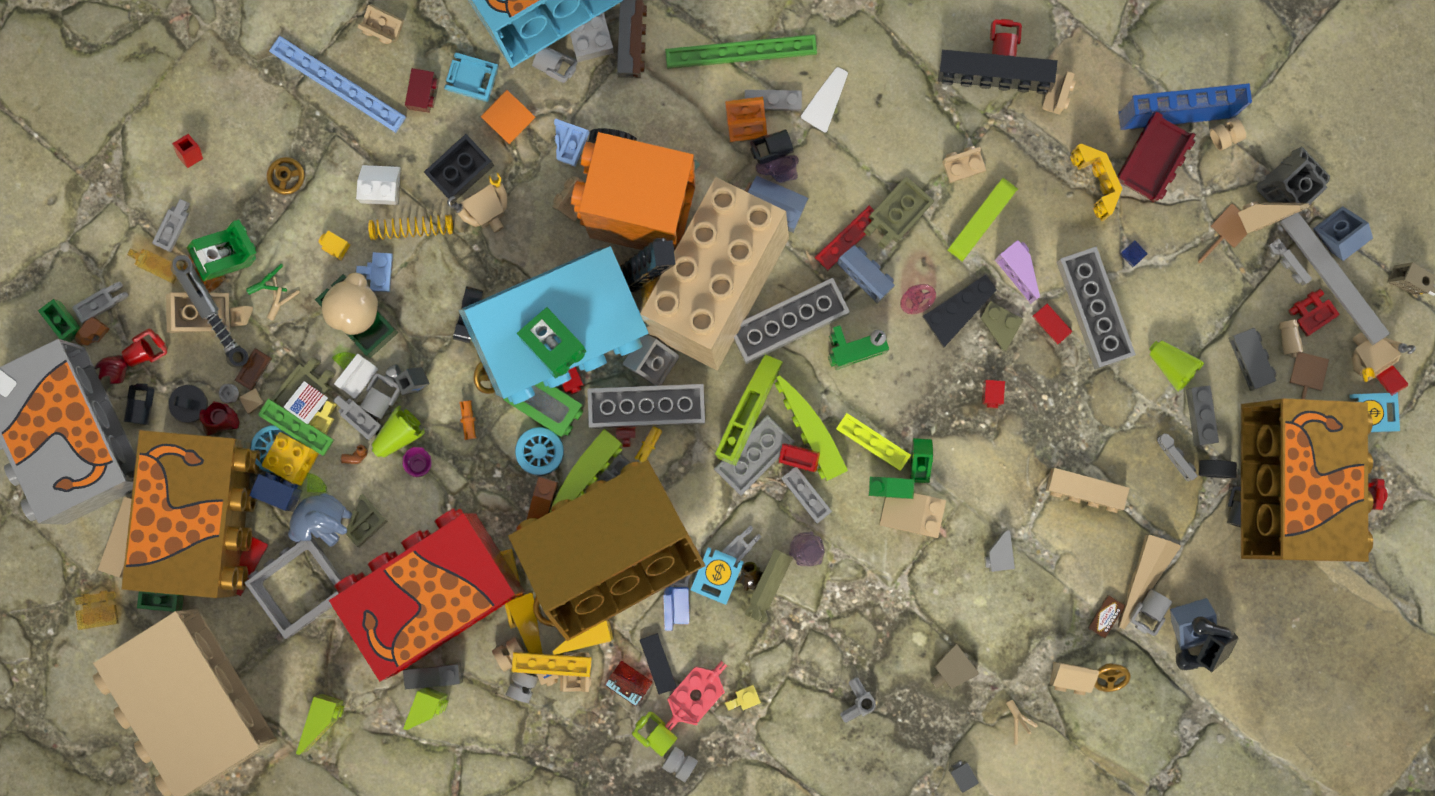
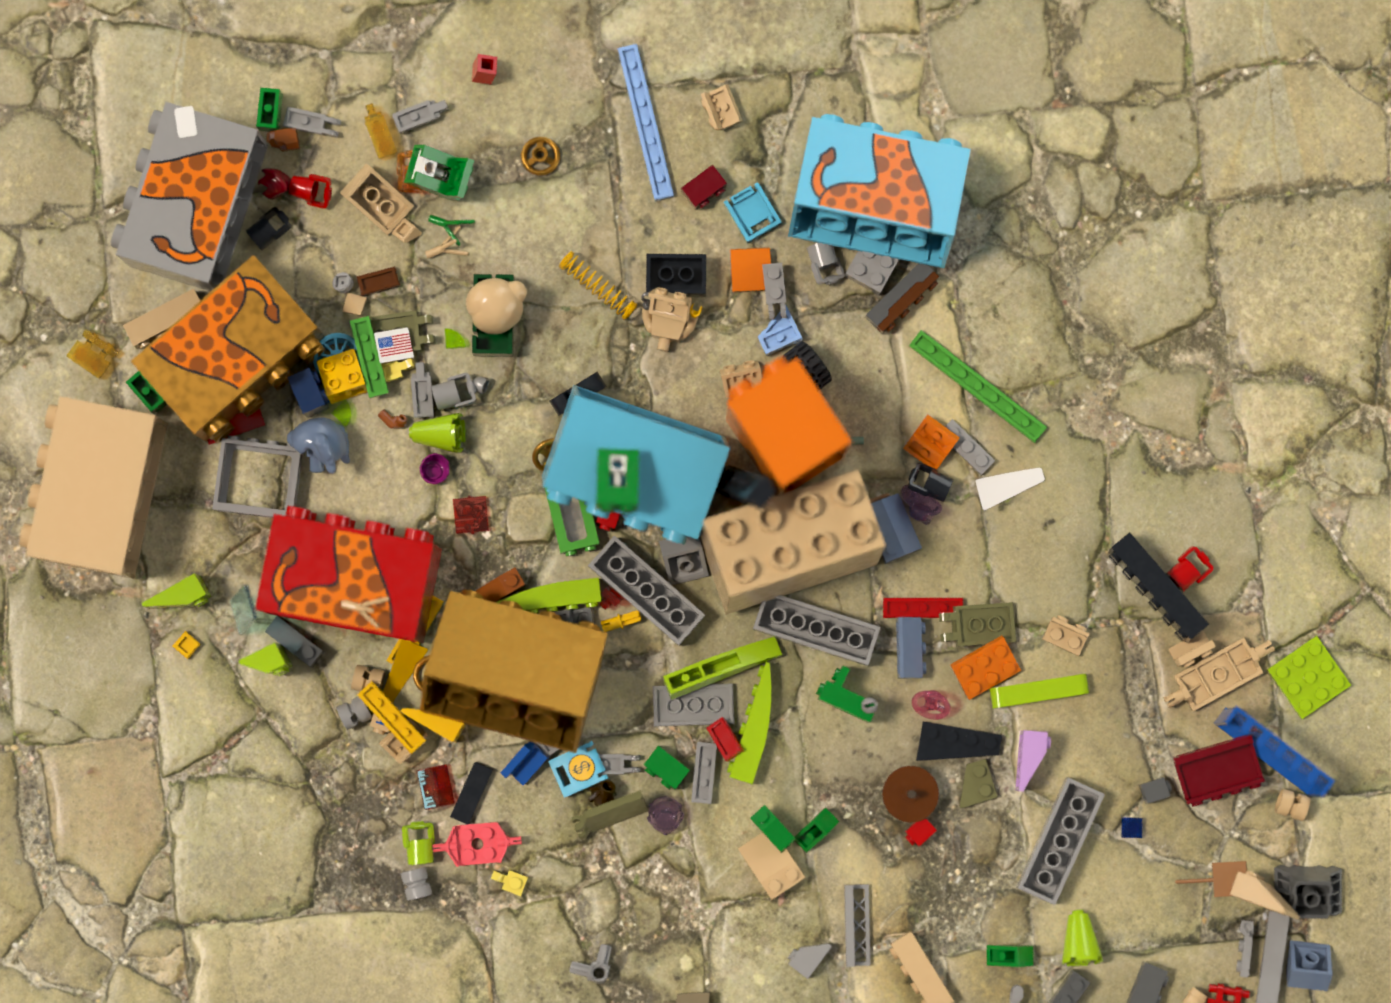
camera: 45 degrees right, 0 degrees up
(187, 402) = (305, 261): black tile -> none
(207, 308) = (387, 205): piece -> none
(218, 418) = (317, 294): dark red hair -> none
(334, 245) = (527, 244): yellow window -> none
(356, 376) = (450, 360): white panel -> none
(358, 751) = (186, 645): none -> yellow tile
(364, 522) = (353, 477): olive wing -> none
(373, 688) = (243, 609): none -> clear light blue piece
(378, 185) = (604, 229): white slope -> none
(378, 271) = (541, 296): light blue hinge -> none
(412, 380) = (488, 404): dark grey brick -> none
(455, 608) = (362, 608): none -> tan plant
(467, 420) = (502, 473): orange pin -> none
(473, 470) = (470, 514): none -> clear red piece
(474, 191) = (669, 305): none -> tan bracket
(536, 113) = (774, 288): none -> light grey hinge
(539, 451) = (534, 548): medium azure wheel -> none
(776, 516) = (666, 767): none -> green brick
(873, 442) = (793, 781): neon yellow plate -> none
(930, 238) = (985, 667): none -> orange plate
(963, 373) = (910, 794): none -> reddish brown piece
(1007, 504) = (849, 925): none -> light grey fence
(1052, 324) = (1016, 821): red tile -> none
(1092, 92) = (1218, 674): none -> tan plate
(1102, 168) = (1162, 717): yellow slope -> none
(1125, 212) = (1155, 790): none -> dark grey brick
(1136, 420) = (1010, 955): none -> green slope
(1154, 38) = (1308, 677): none -> lime plate

